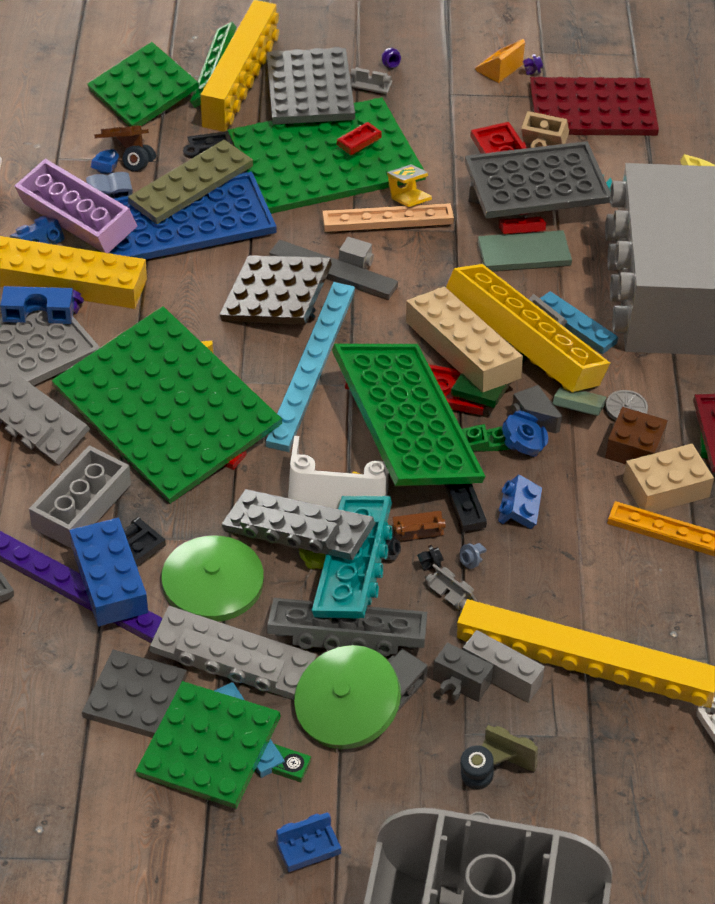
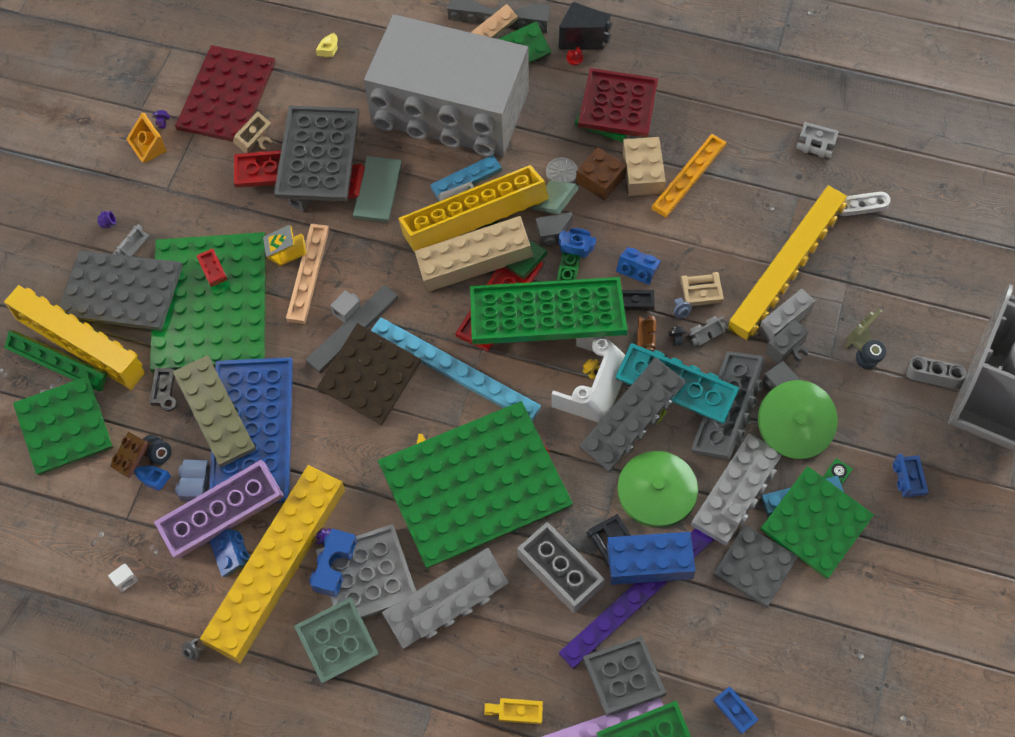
camera: 70 degrees left, 15 degrees up
(504, 575) = (704, 293): none -> tan plate

